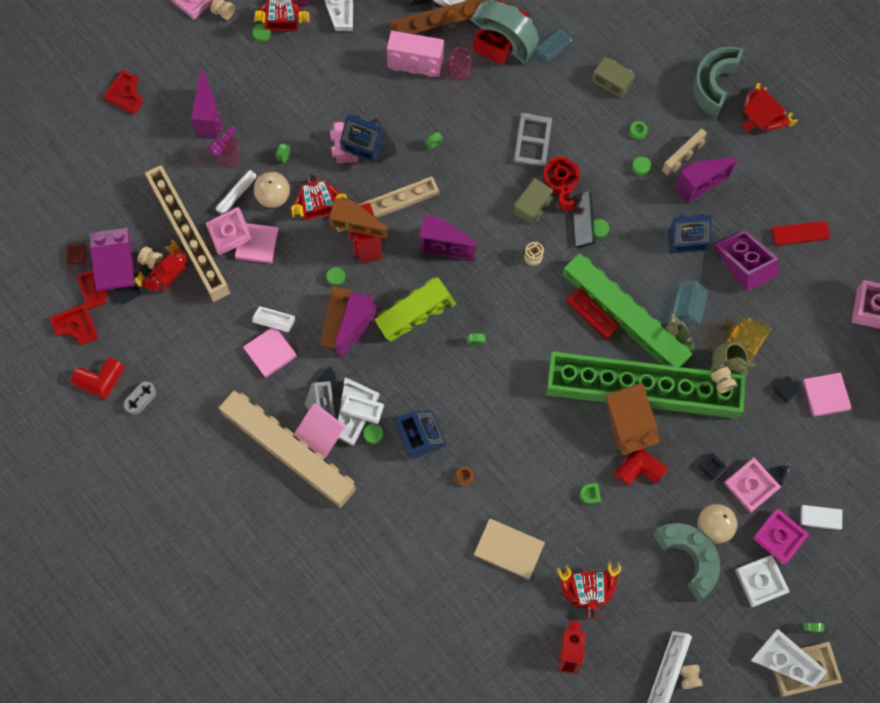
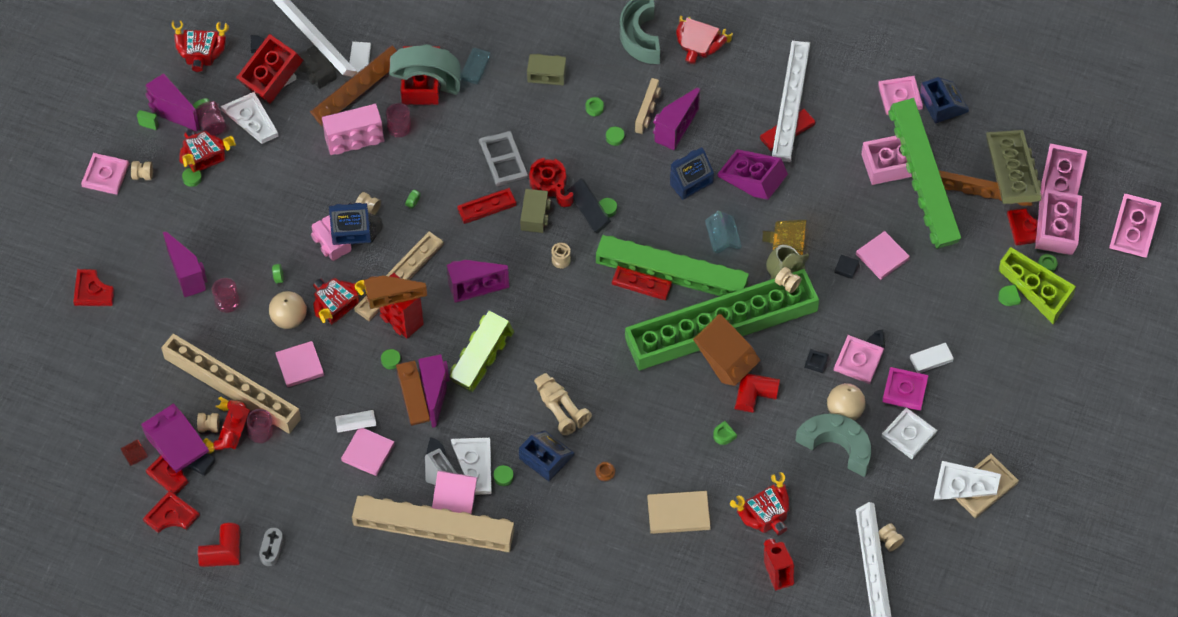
camera: 25 degrees left, 10 degrees down
(189, 283) = (259, 425): none -> clear pink wheel
(216, 147) = (217, 295): magenta bar -> none
(228, 231) = (267, 364): bright pink tile -> none
(236, 192) = (253, 329): white axle -> none
(362, 408) = (482, 456): white tile -> none
(392, 125) = (372, 203): none -> tan wheel
(458, 381) = (554, 395): none -> tan piece
(476, 339) = (550, 352): bright green tile -> none
(495, 176) = (486, 205): none -> red tile
(678, 328) = (726, 259): olive helmet -> none
(813, 627) = (971, 448): bright green tile -> none
(817, 208) = (791, 100): none -> white tile

